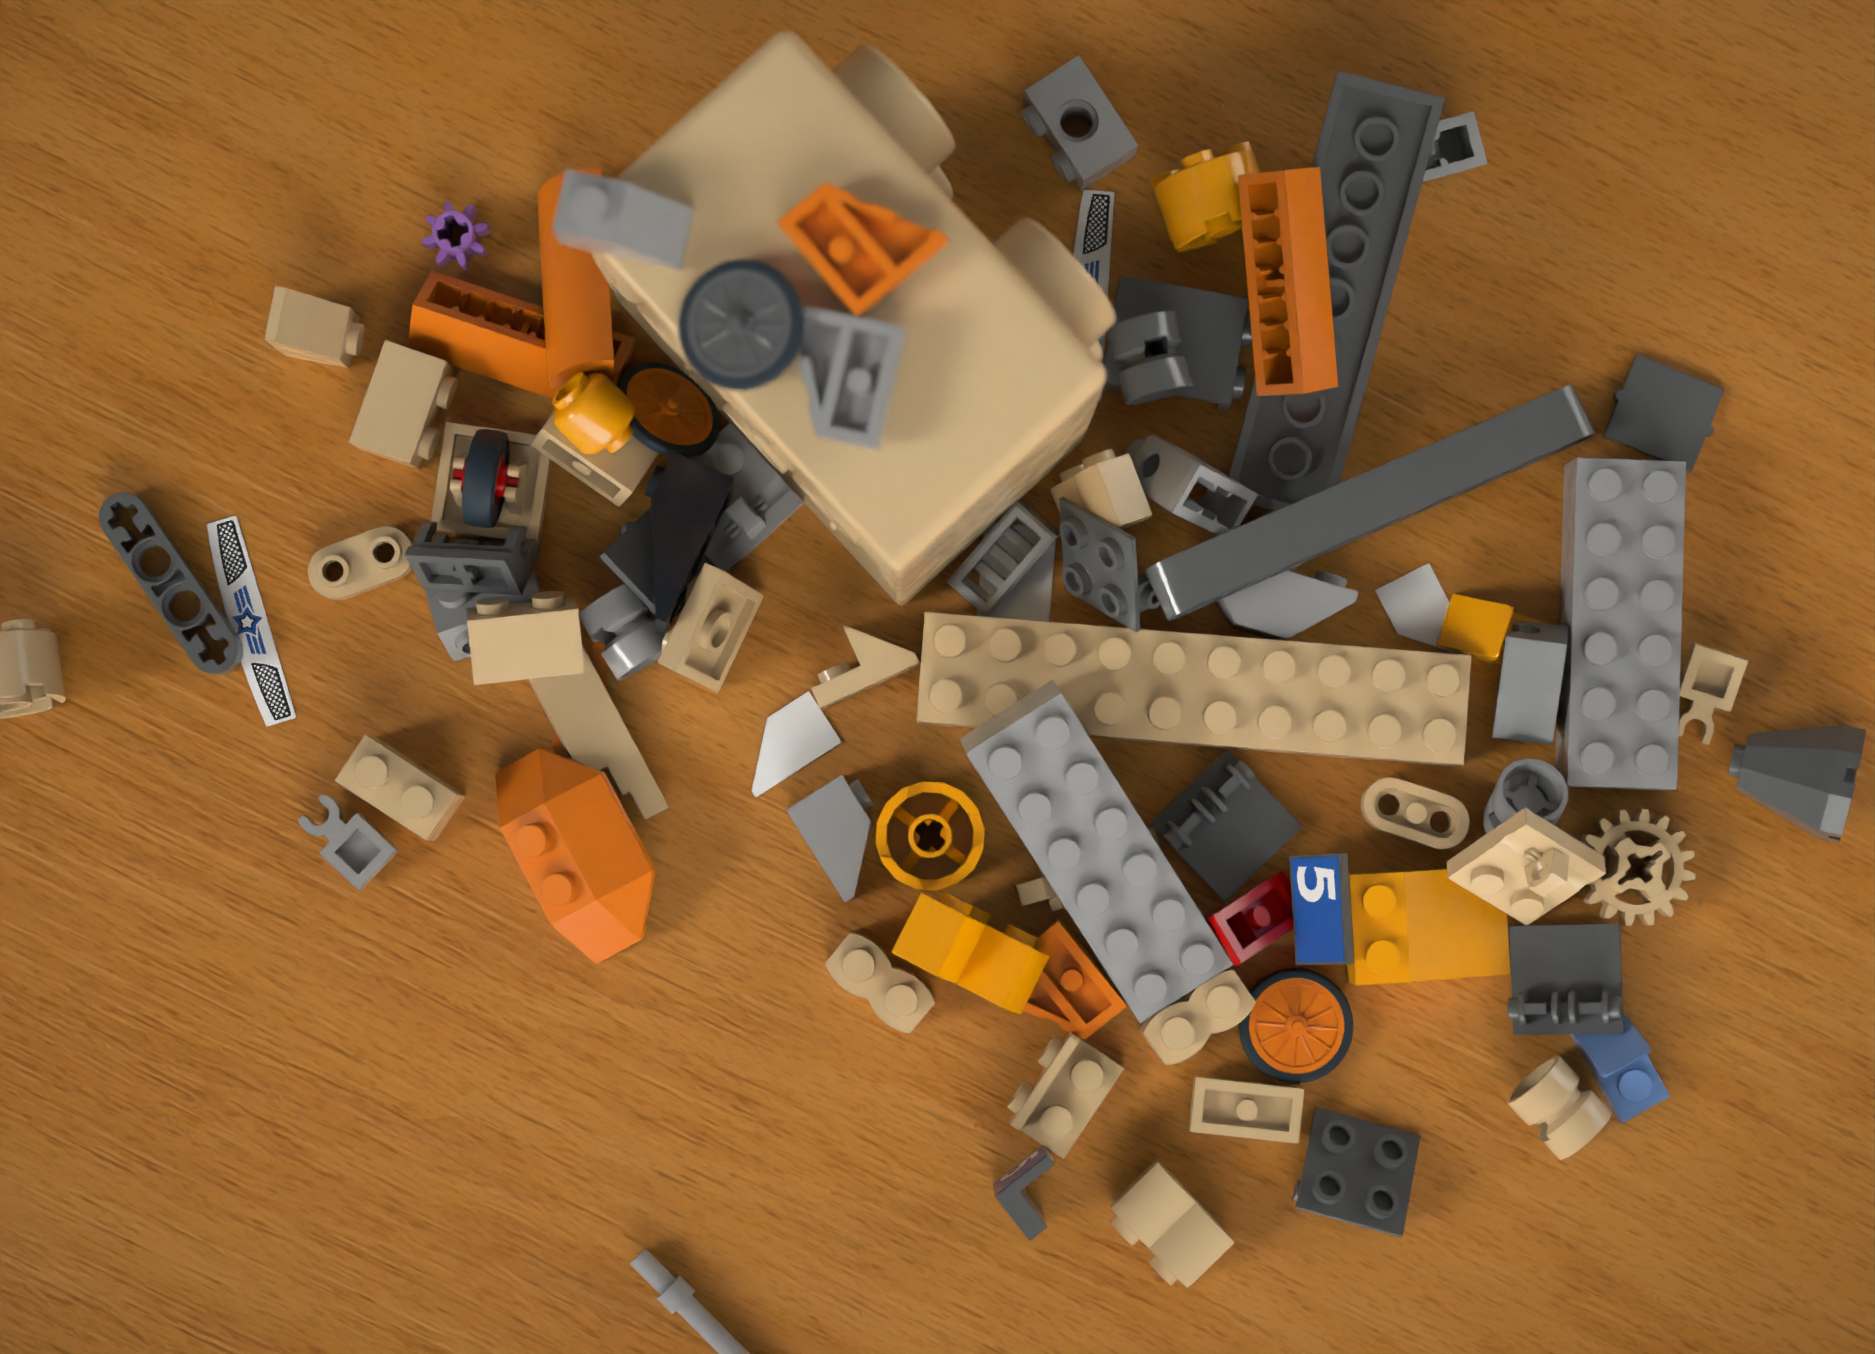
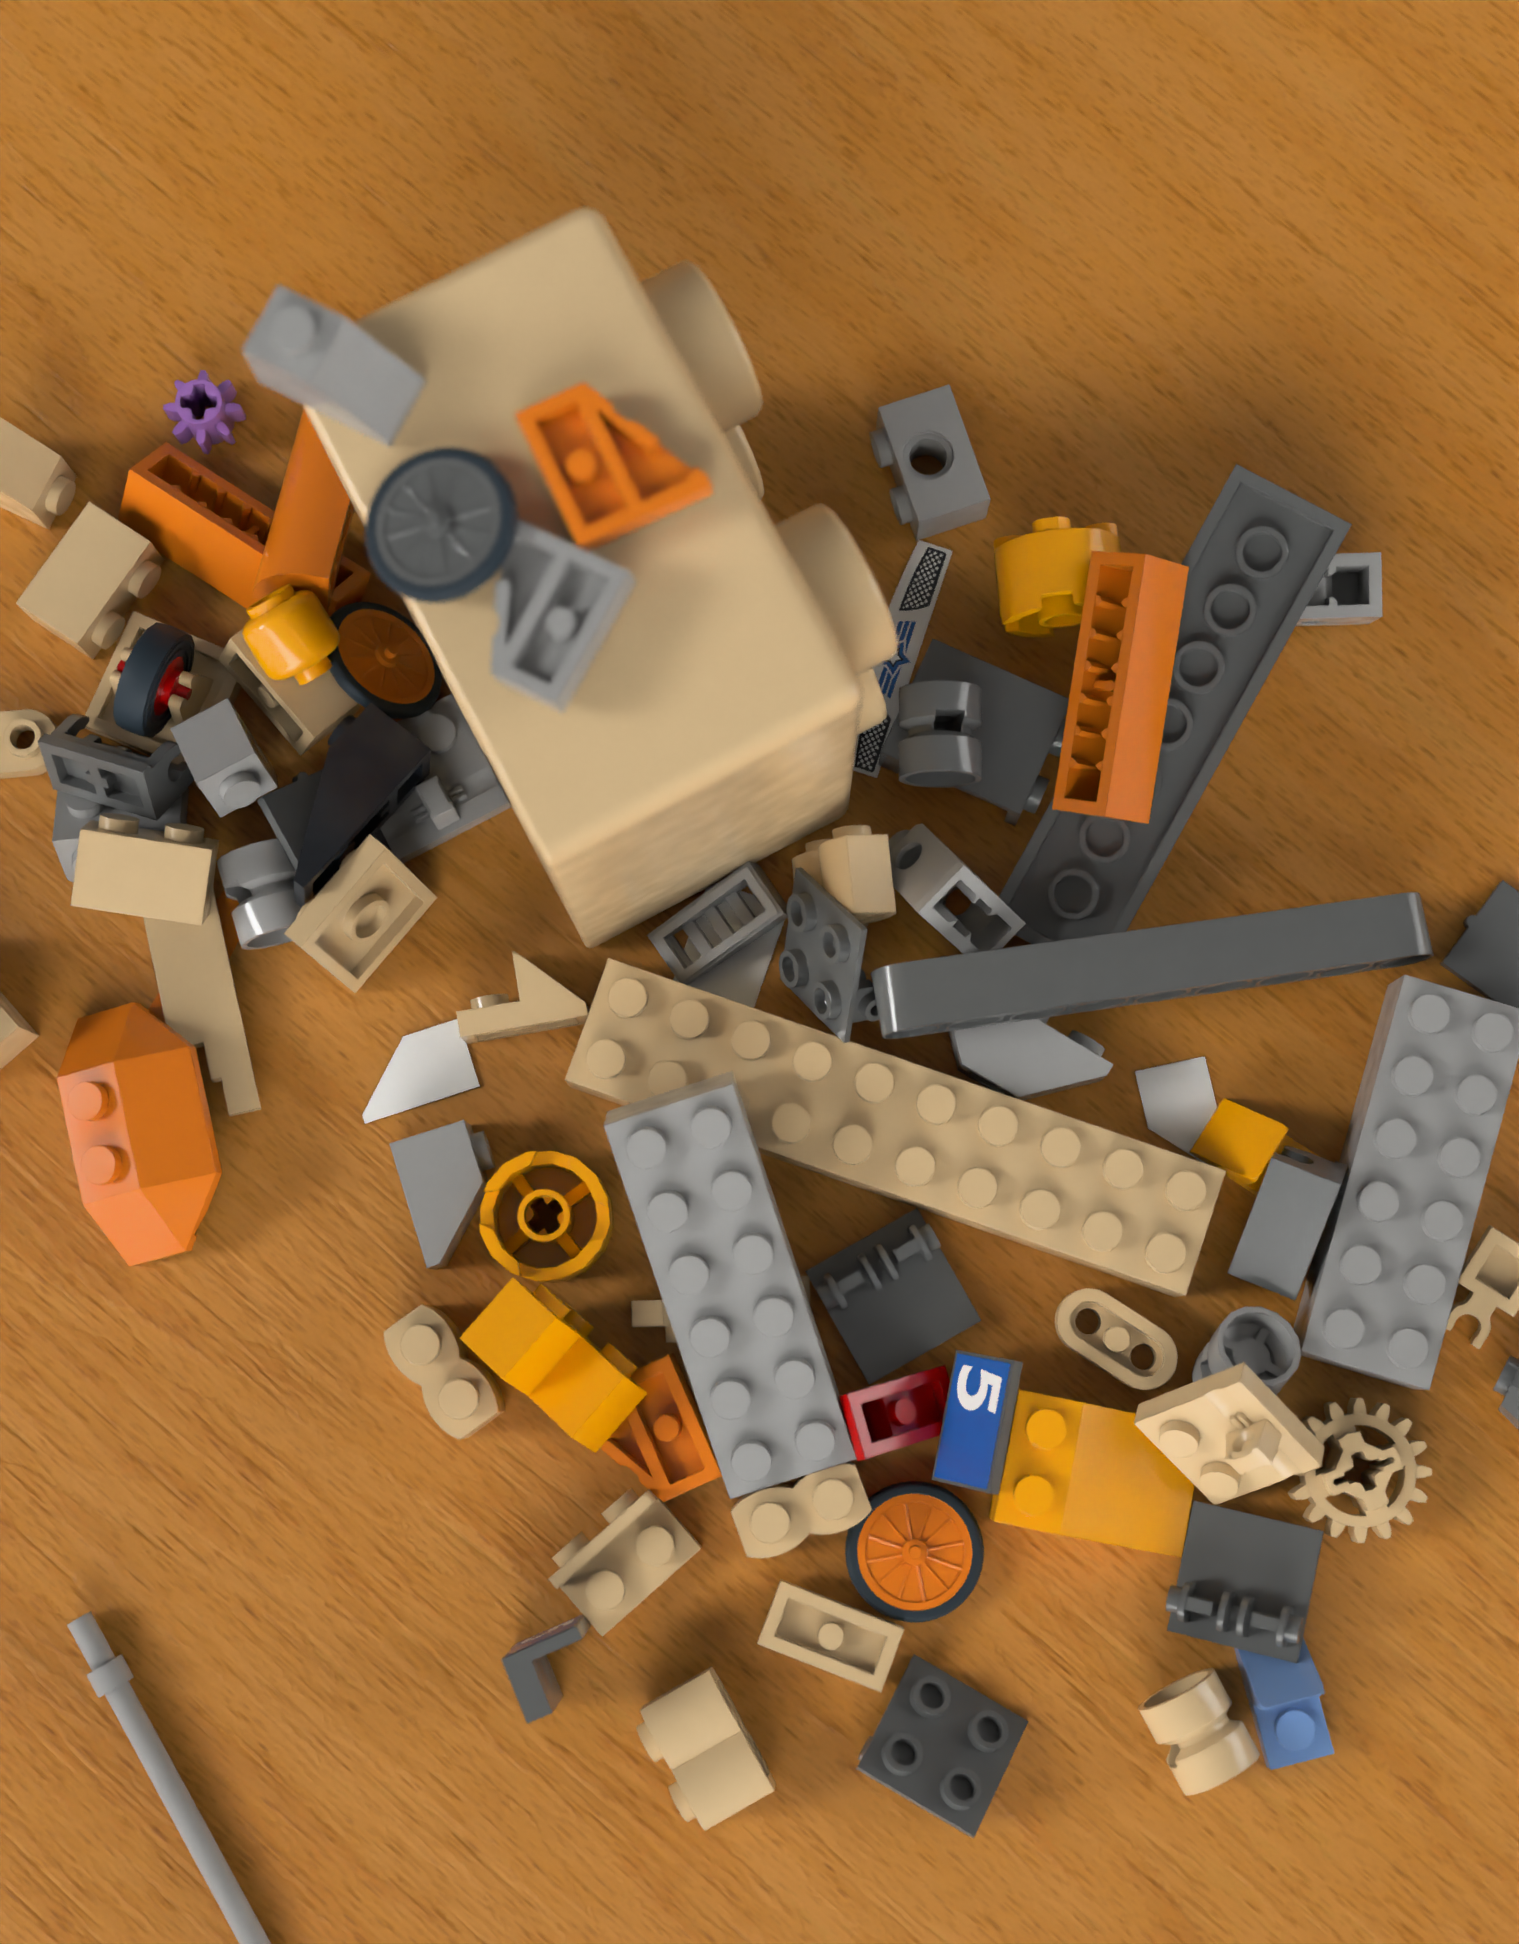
camera: 20 degrees right, 5 degrees down
(565, 530) = (224, 758): none -> light grey slope

